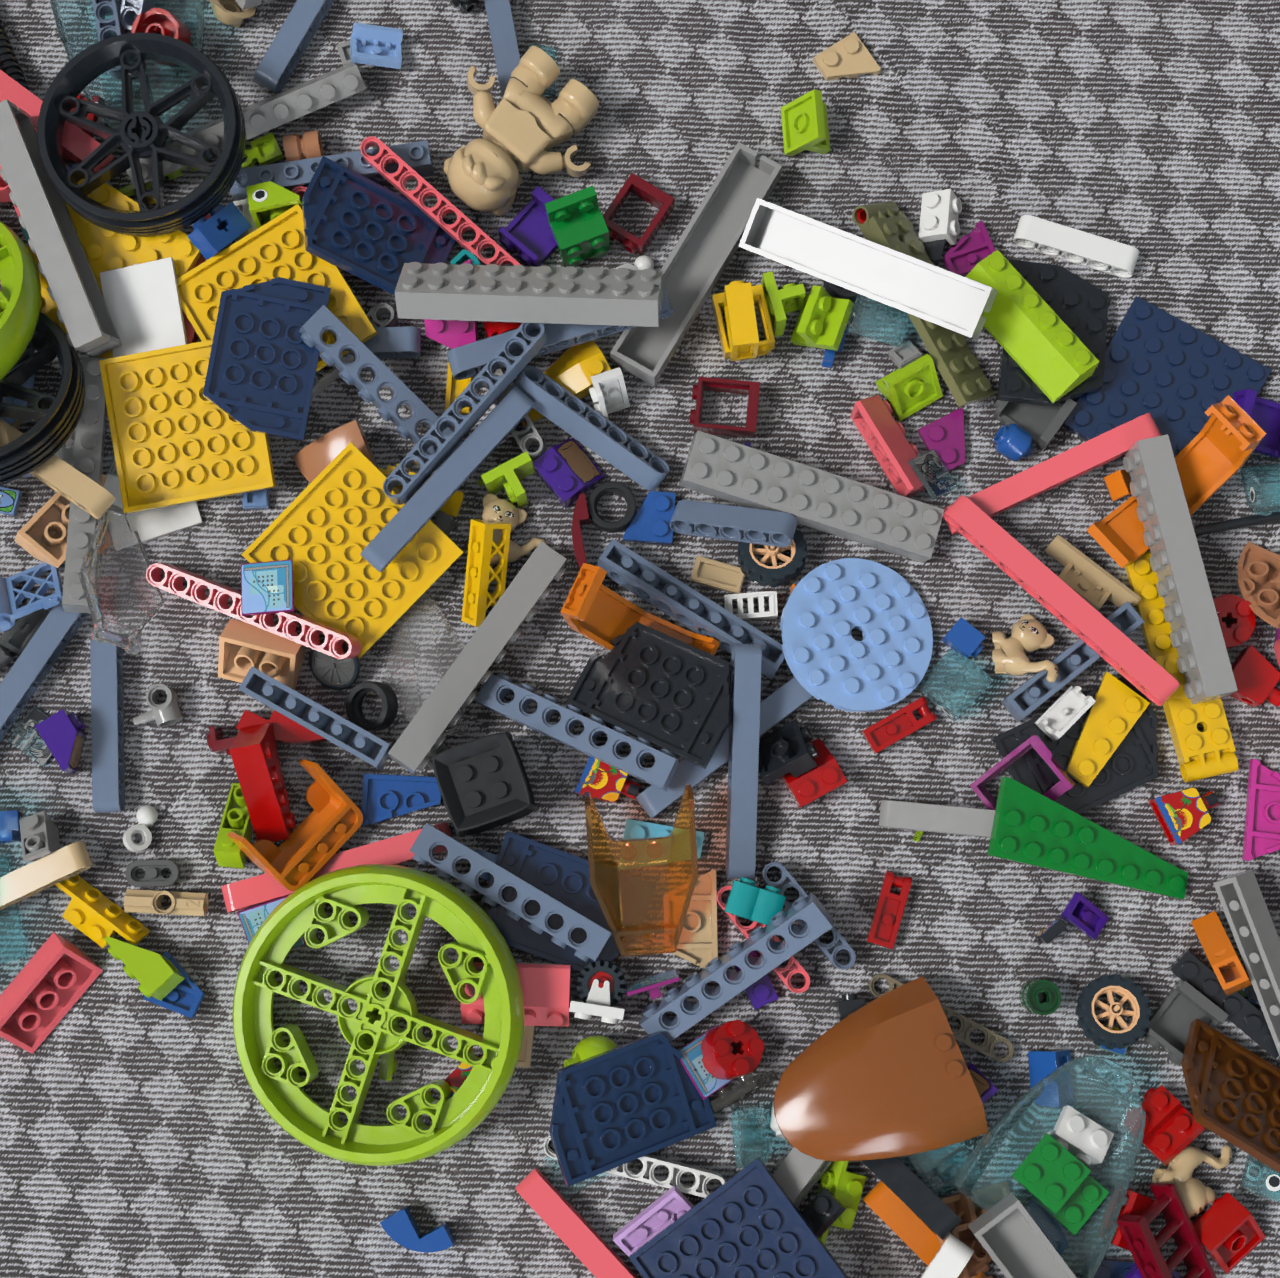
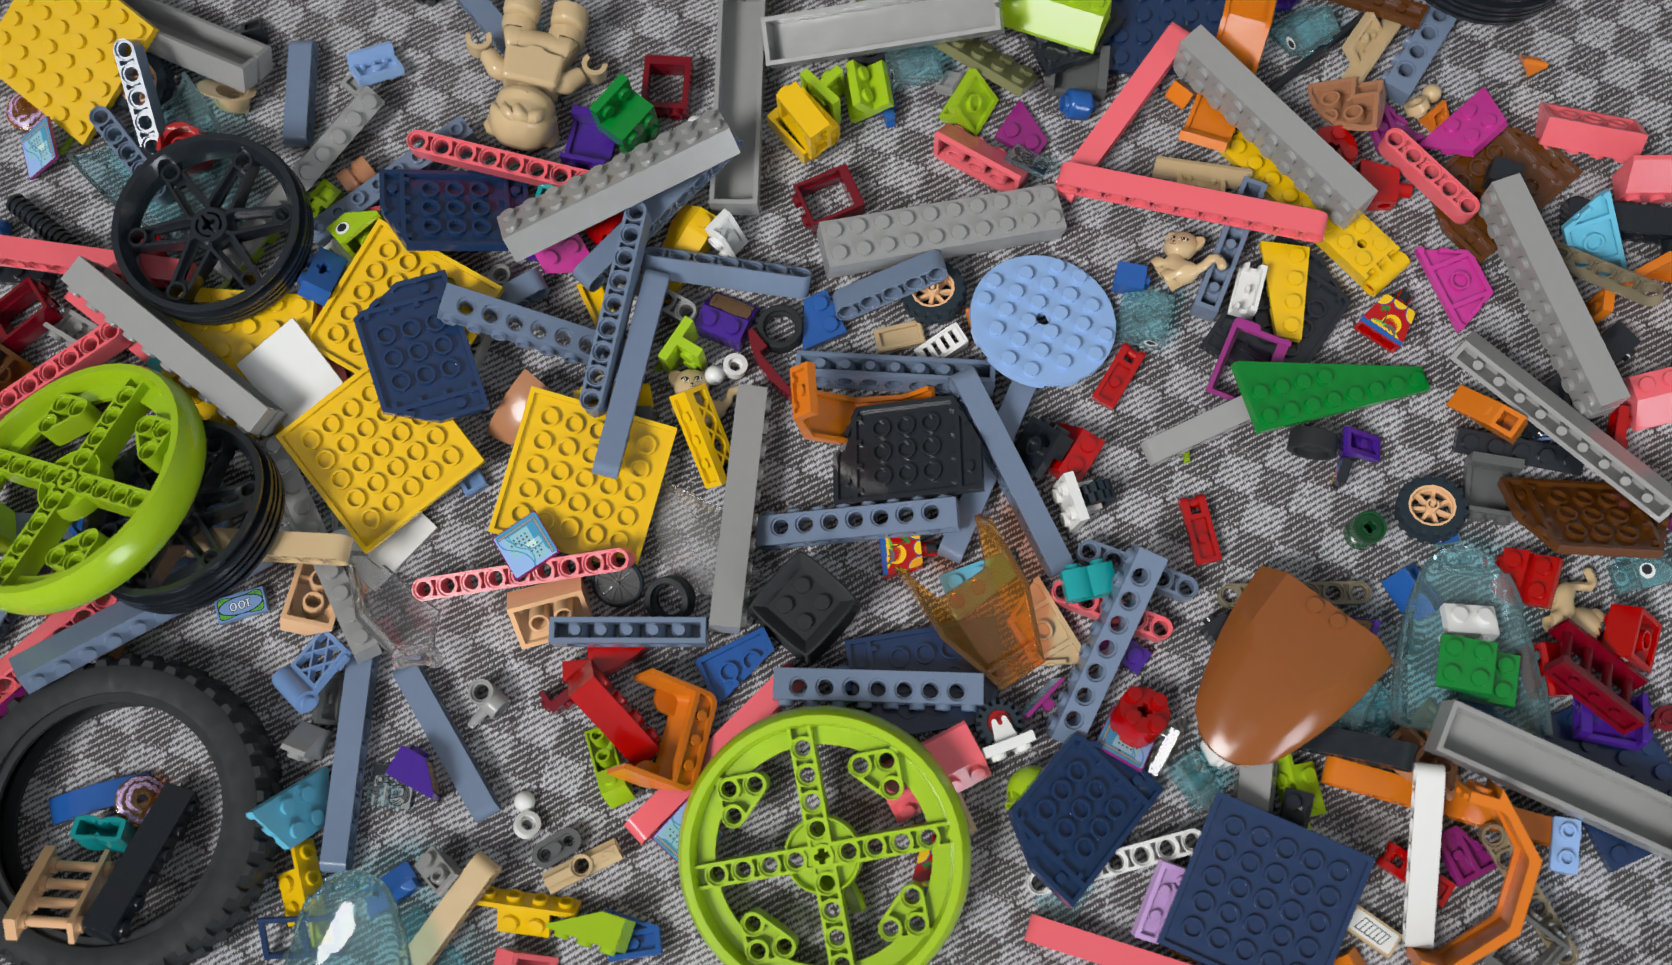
camera: 25 degrees left, 5 degrees down
(528, 519) = (714, 374): none -> white plate
(794, 822) = (1080, 499): none -> white plate
(1040, 889) = (1312, 443): none -> black tyre

